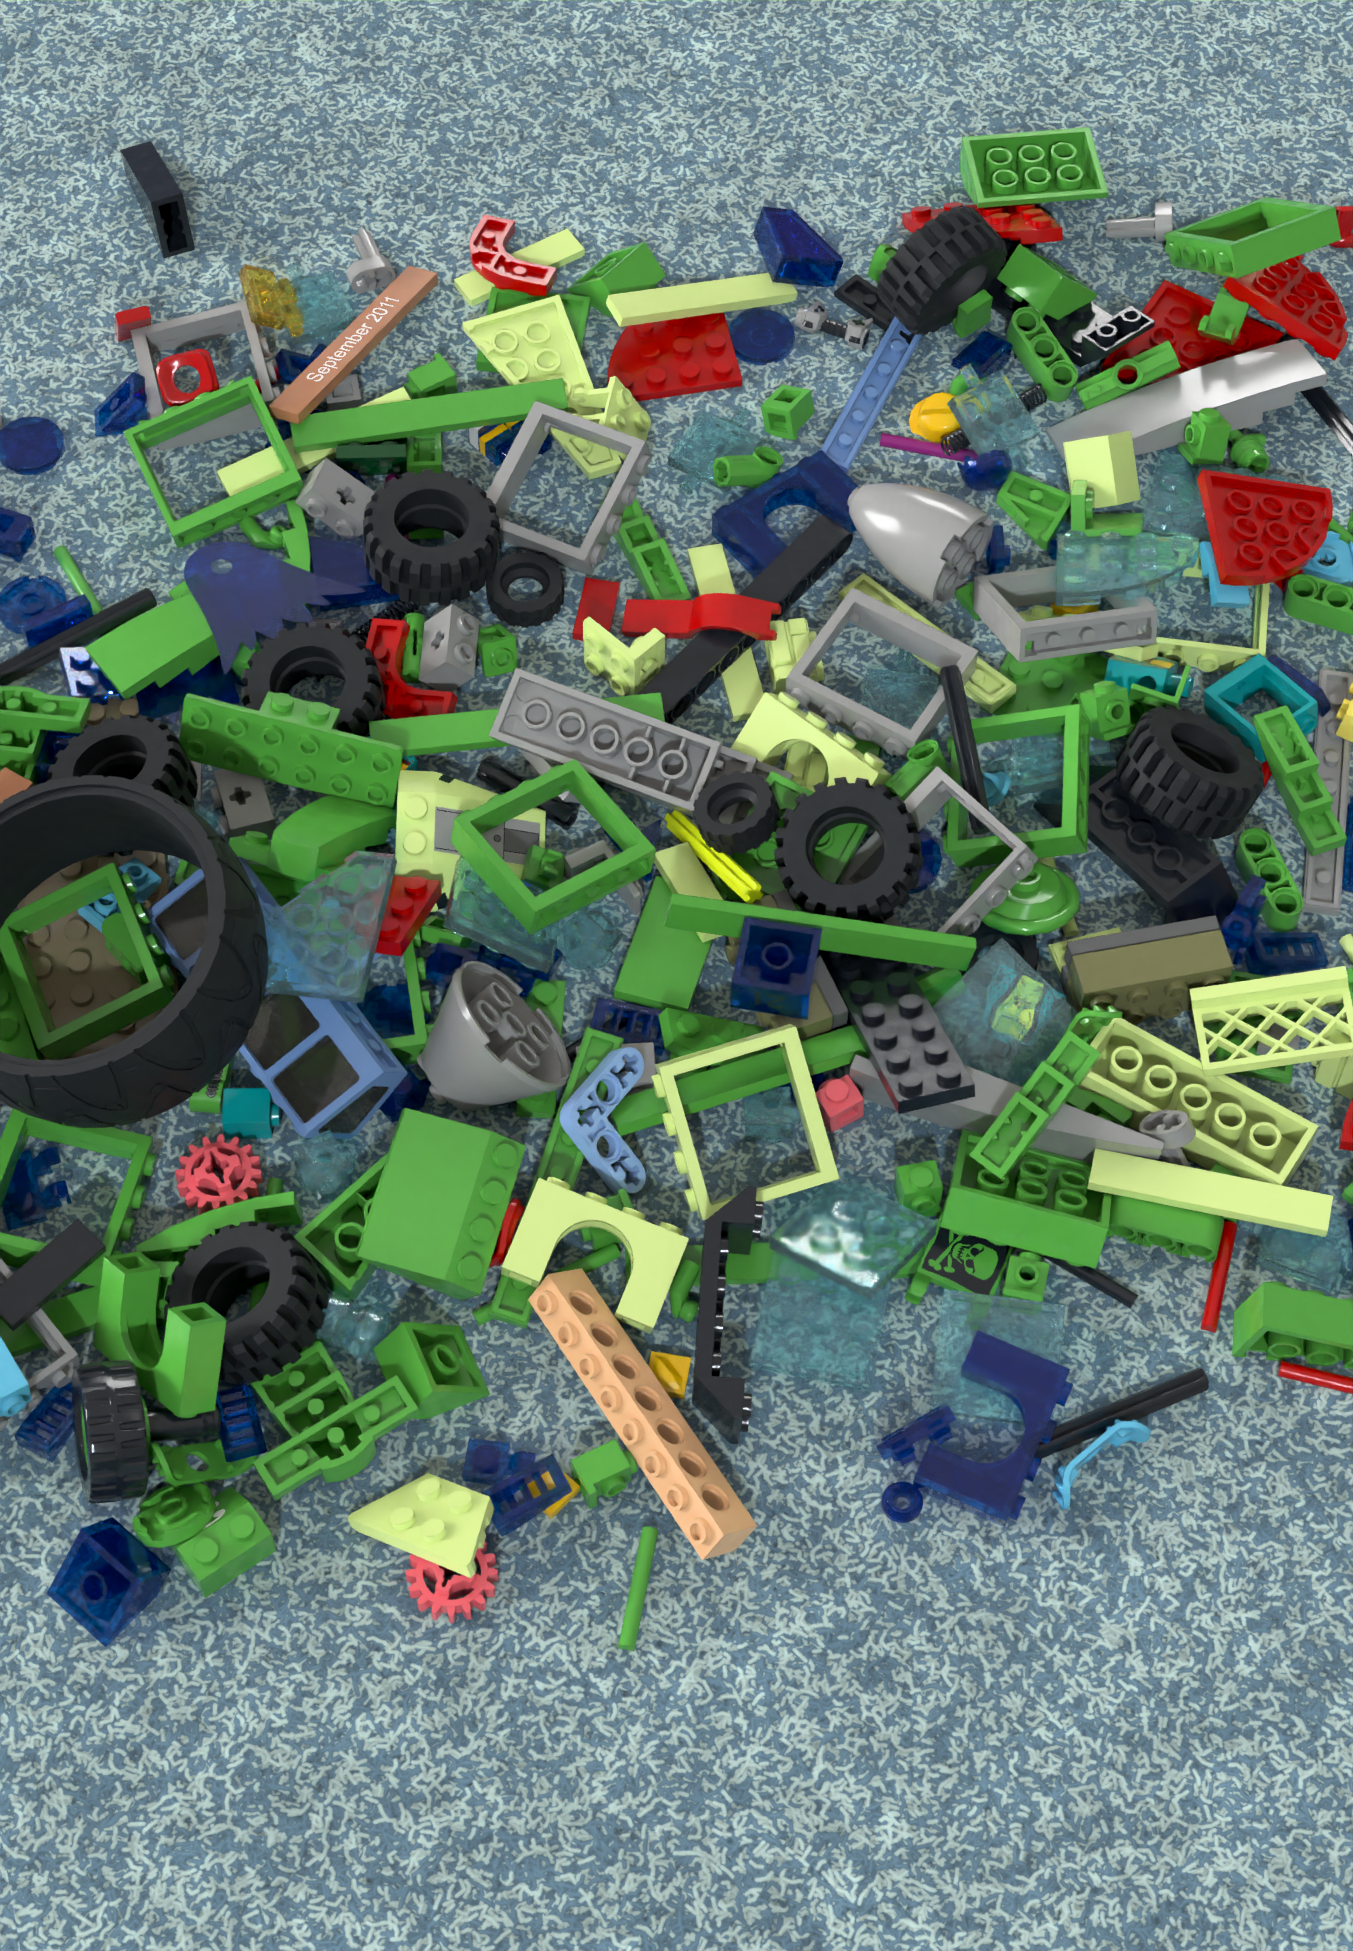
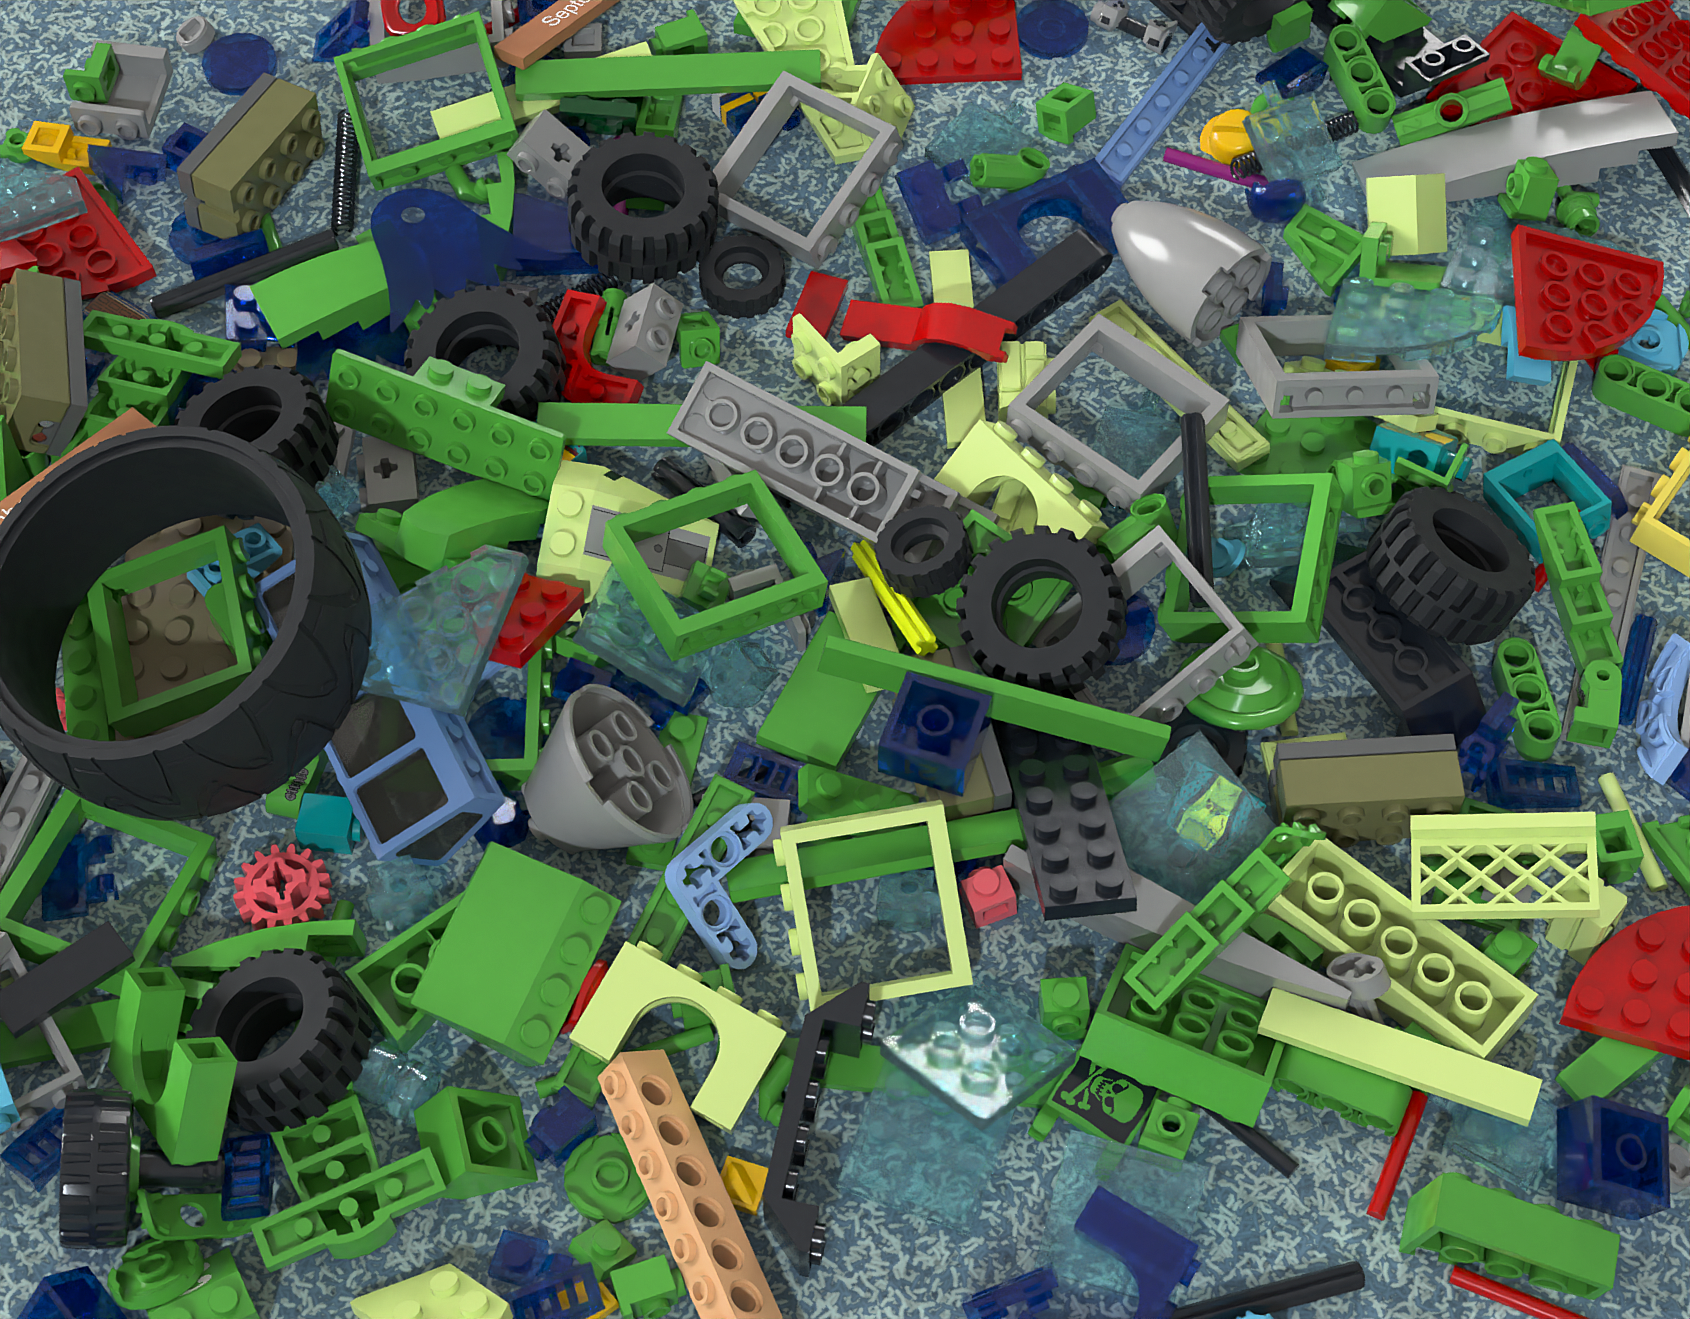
camera: 10 degrees right, 0 degrees up
(63, 531) = (251, 158): none -> olive piece
(137, 512) = (338, 174): none -> black piece
(504, 1348) = (560, 1129): none -> clear blue brick
(551, 1398) = (613, 1194): none -> bright green tile
(560, 1441) = (603, 1248): none -> bright green plate
(681, 506) = (928, 201): none -> clear blue plate
(1288, 1091) = (1510, 950): none -> bright green brick
(1332, 872) = (1600, 698): none -> bright green leg

